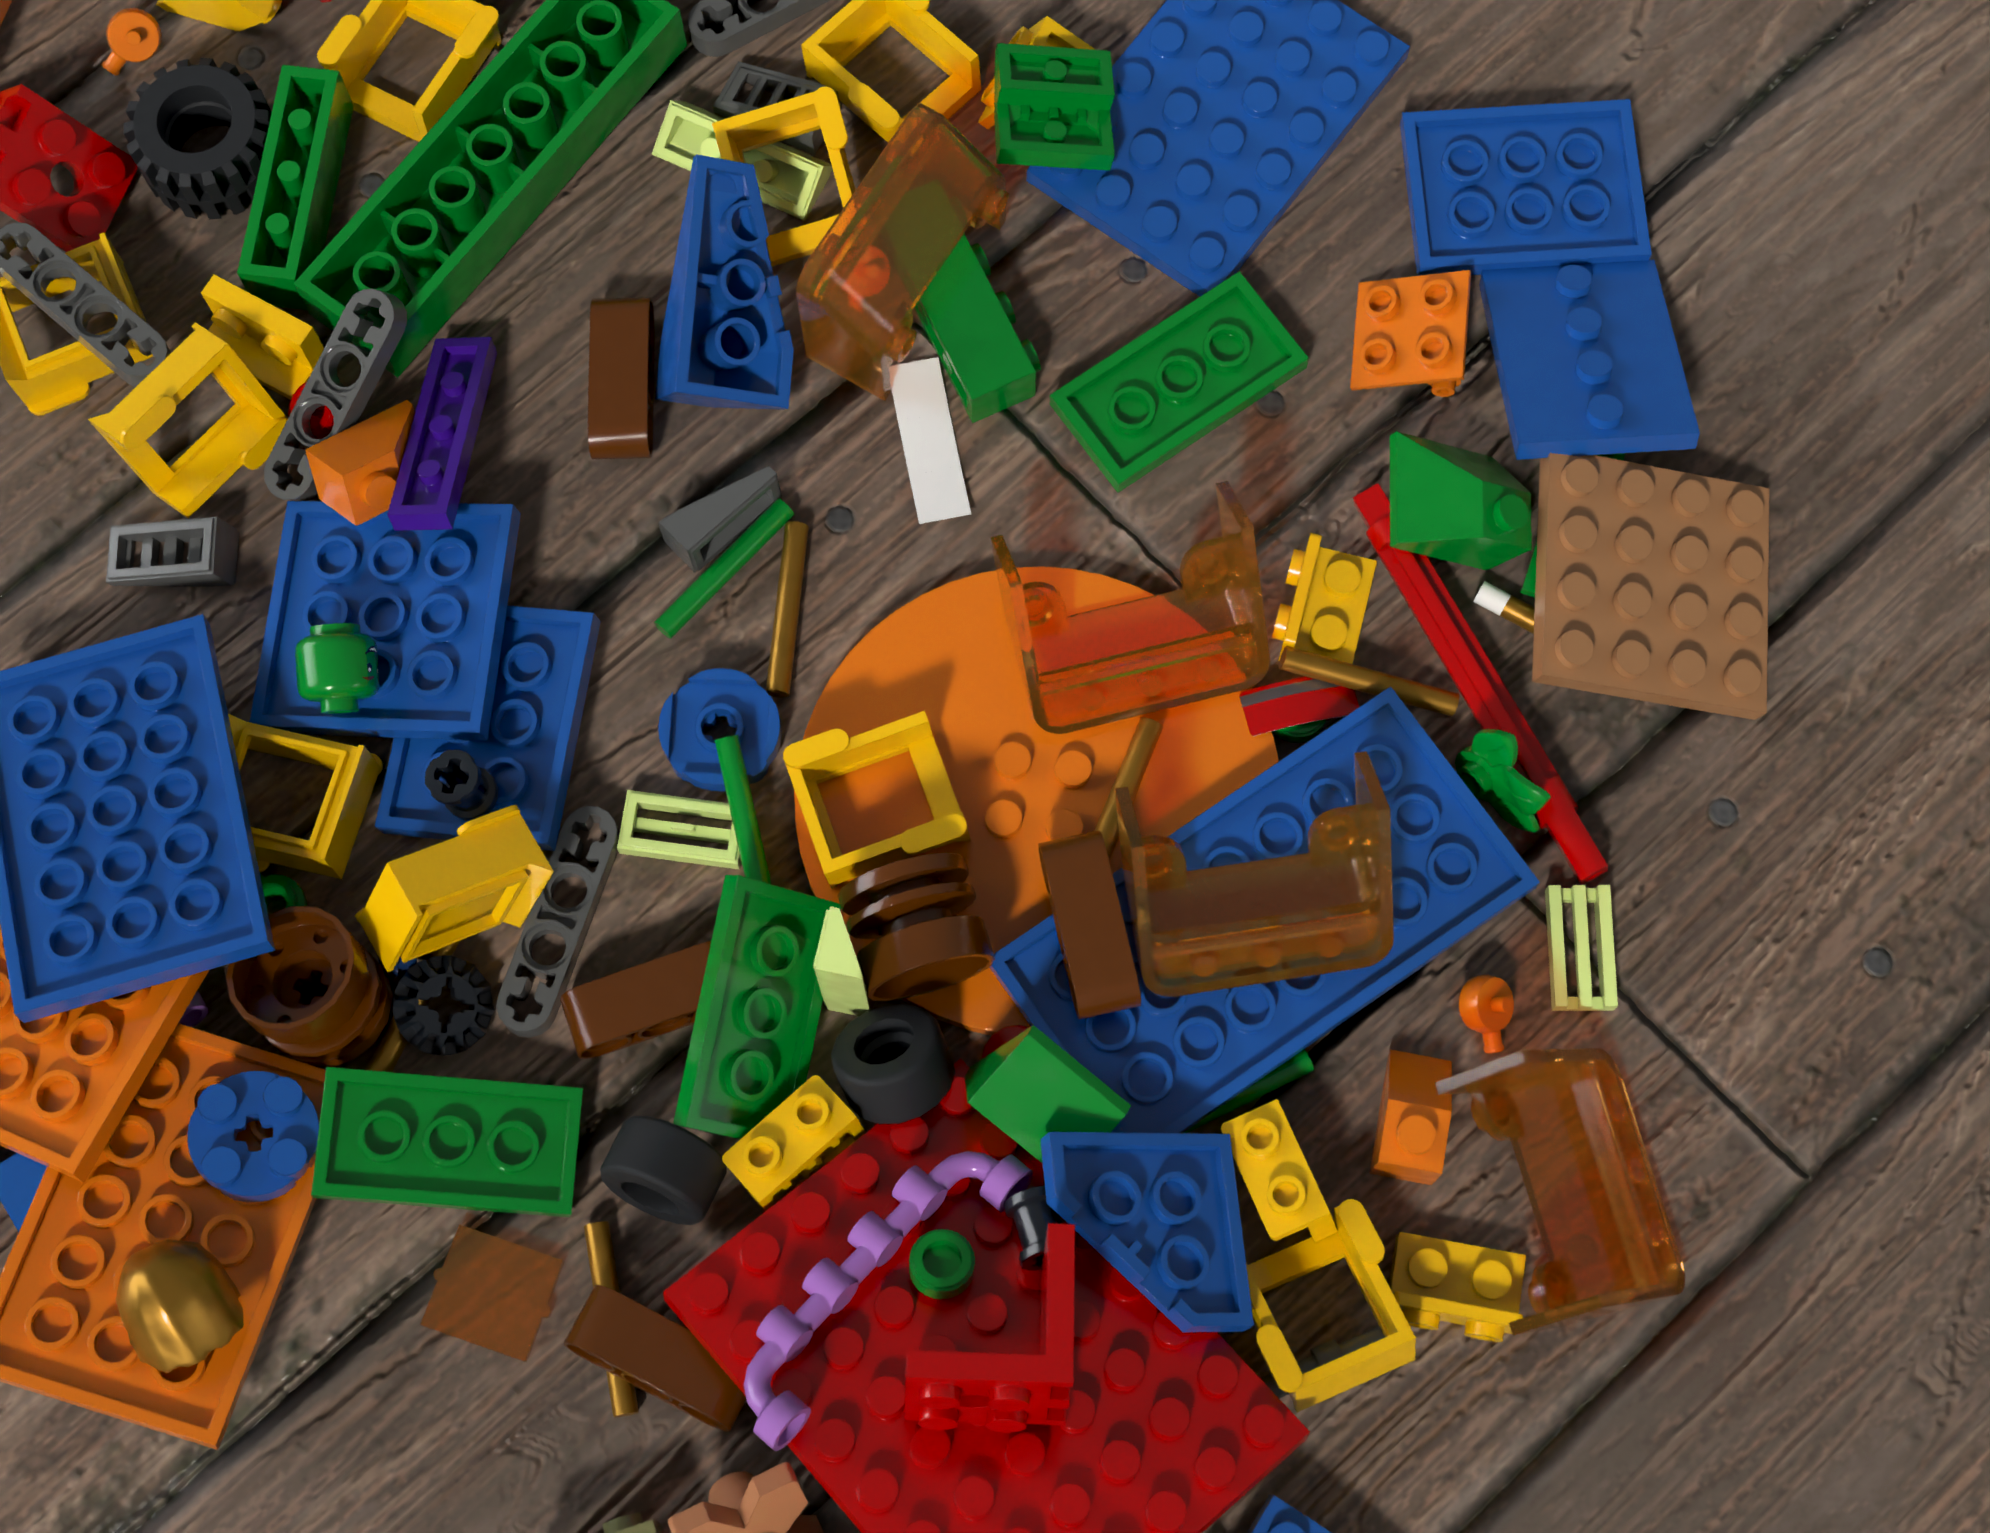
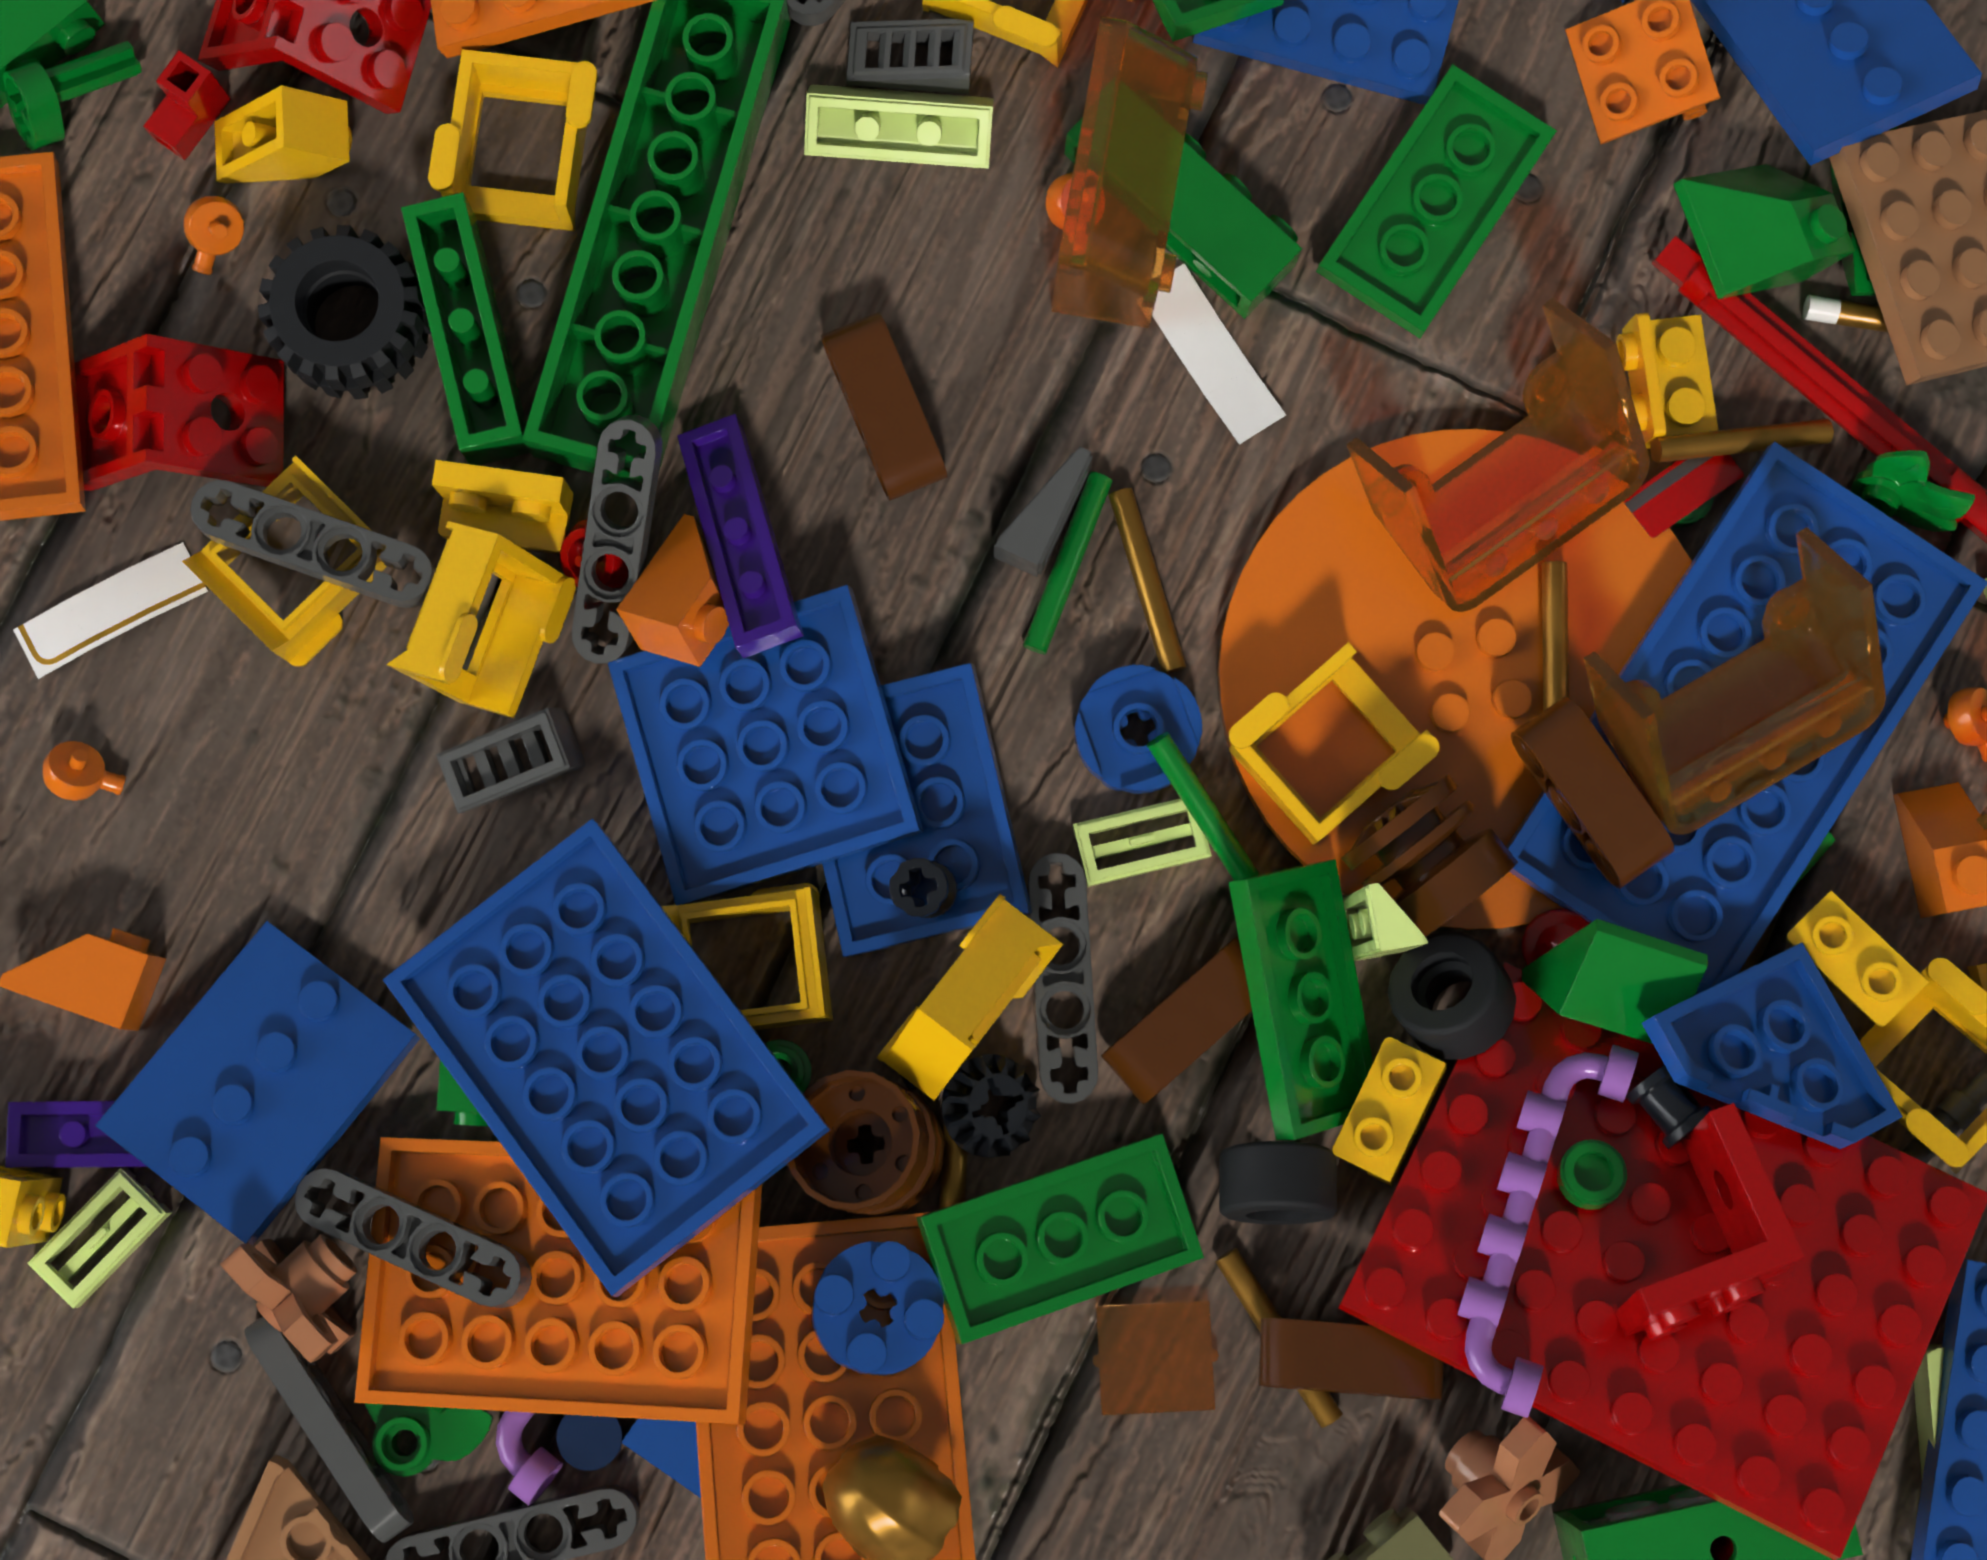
camera: 30 degrees left, 10 degrees up
(337, 667) = (751, 820): green head -> none
(723, 310) = (964, 302): blue wedge -> none
(781, 122) = (991, 54): yellow piece -> none

